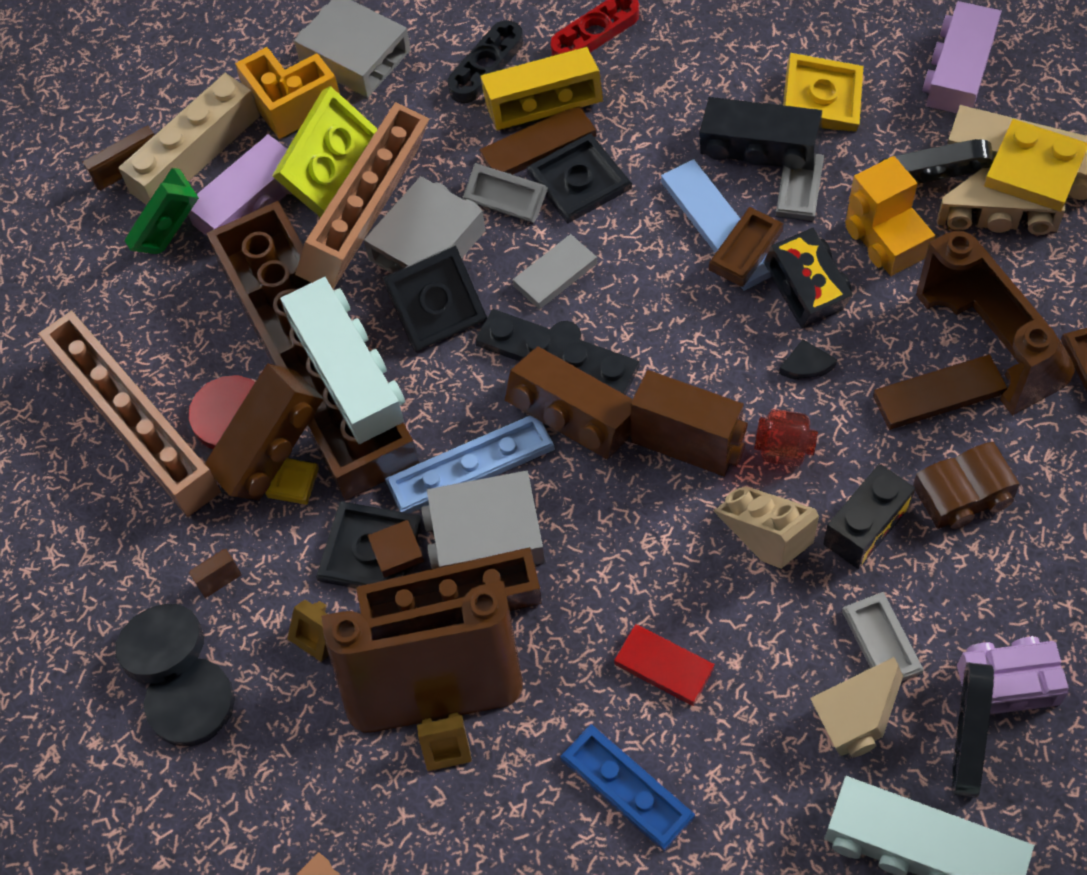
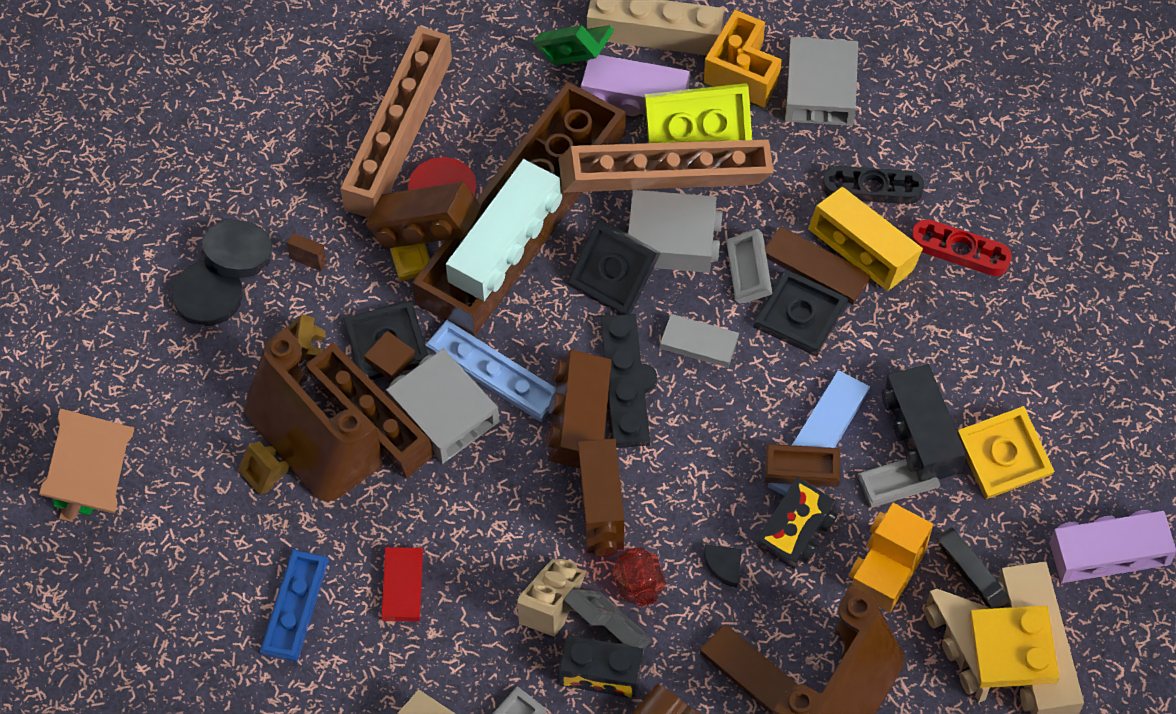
camera: 55 degrees right, 0 degrees up
(821, 482) = (601, 611): none -> dark grey tile

